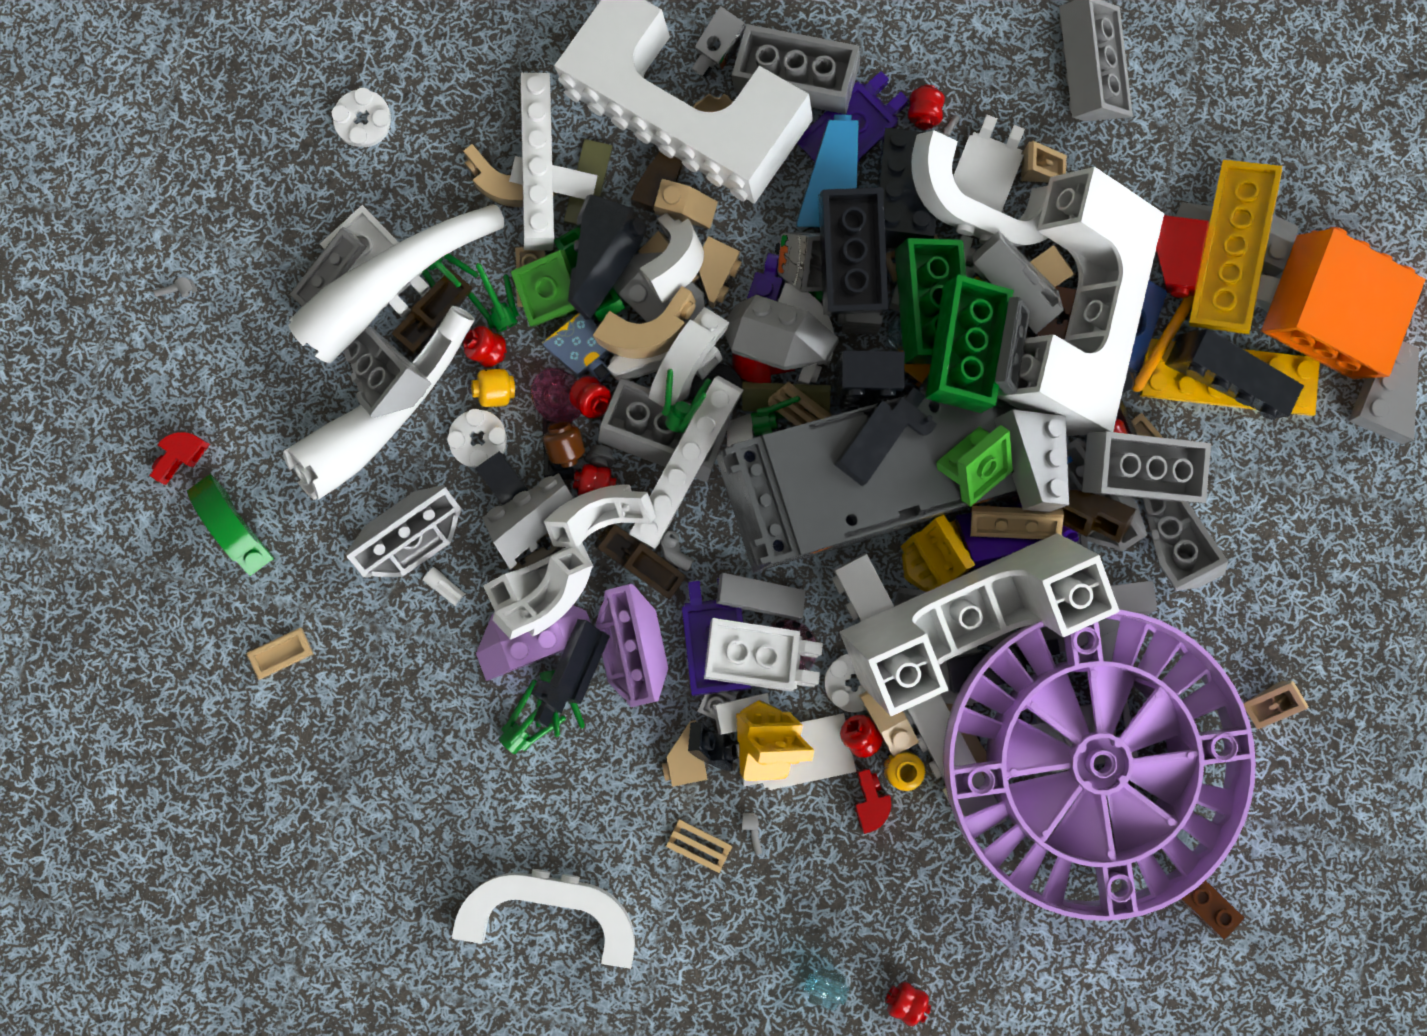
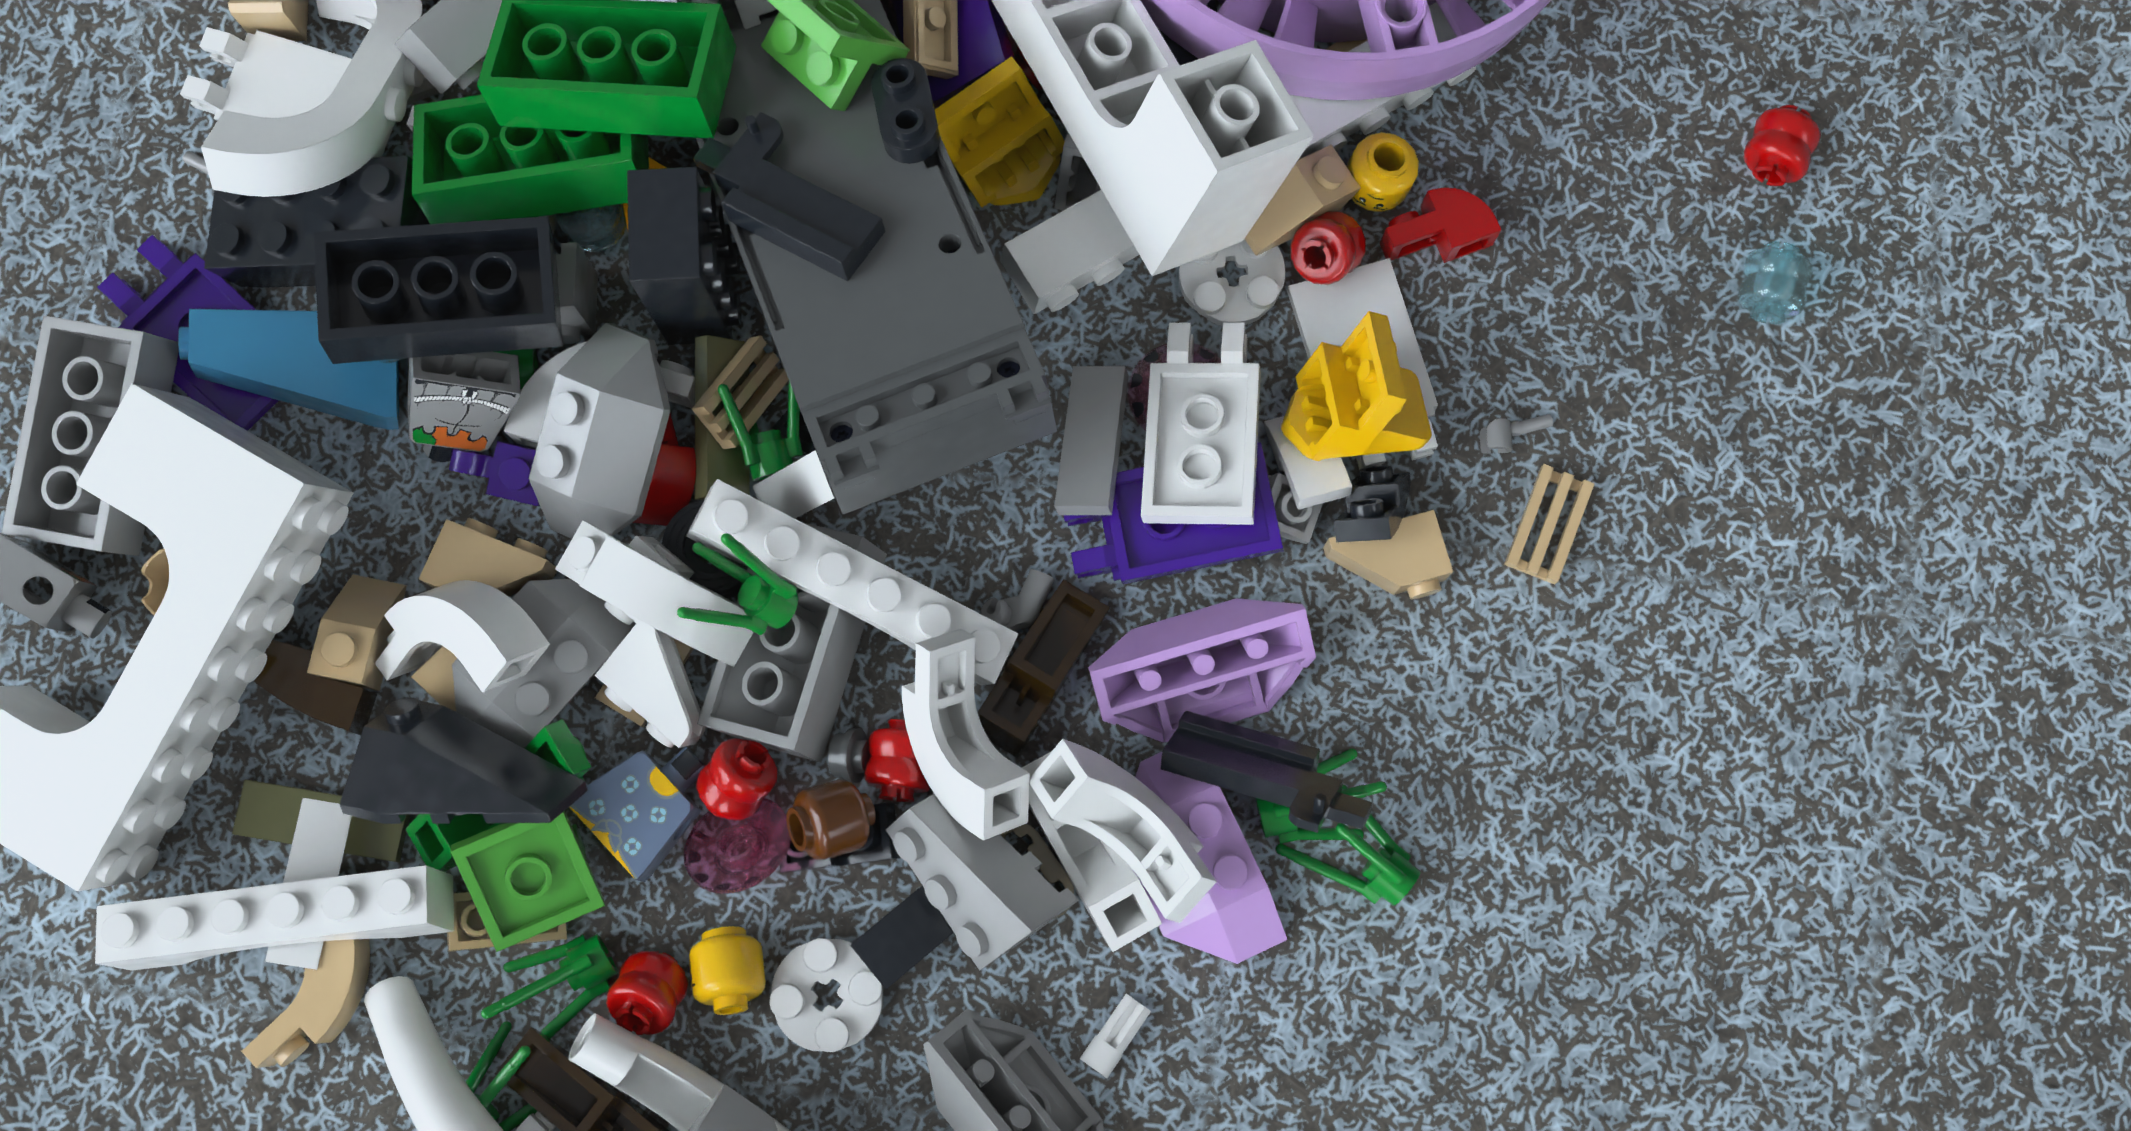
camera: 90 degrees left, 5 degrees down
(564, 892) = (1664, 787): white arch -> none
(648, 338) = (621, 671): tan arch -> none
(926, 107) = (167, 205): red piece -> none
(935, 501) = (904, 106): none -> black plate

